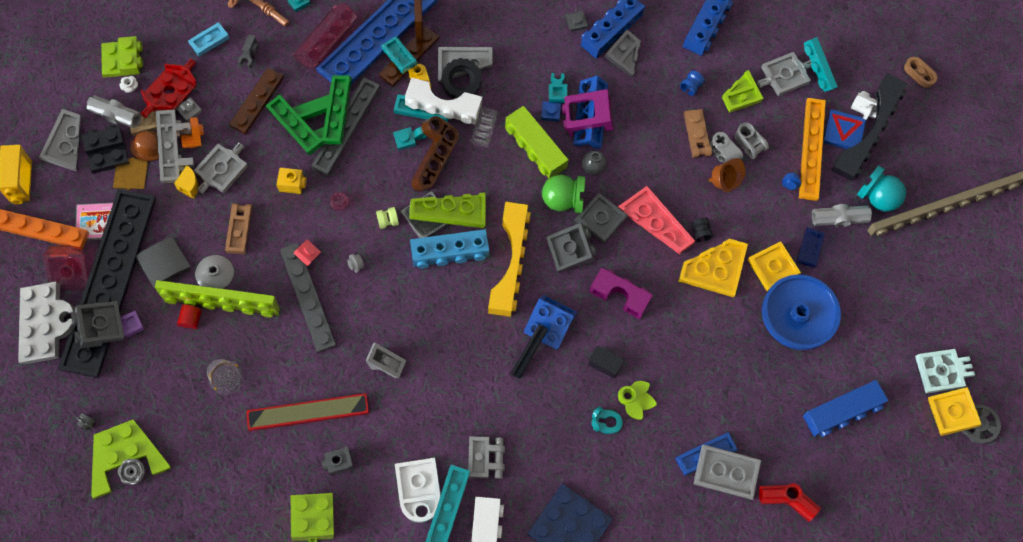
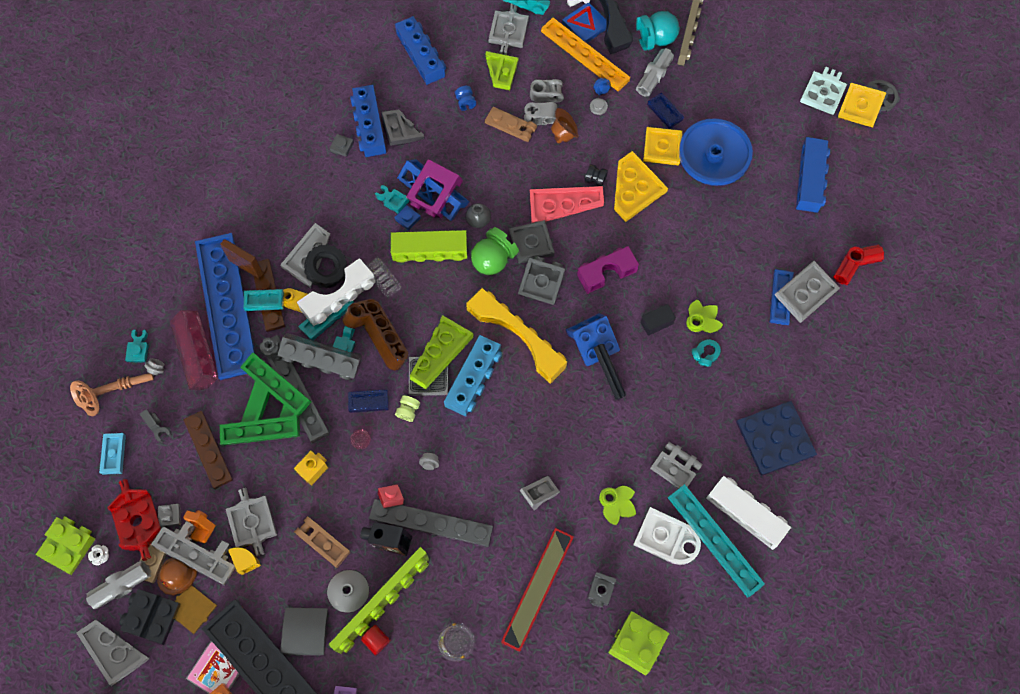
camera: 50 degrees left, 0 degrees up
(270, 269) = (387, 538): none -> black torso
(294, 19) = (154, 366): none -> light grey plate
(367, 88) = (272, 350): none -> dark grey plate
(373, 185) = (368, 401): none -> clear blue plate
(382, 124) = (319, 355): none -> dark grey brick
(418, 432) = (619, 505): none -> lime plate
(770, 191) = (598, 106): none -> light grey plate

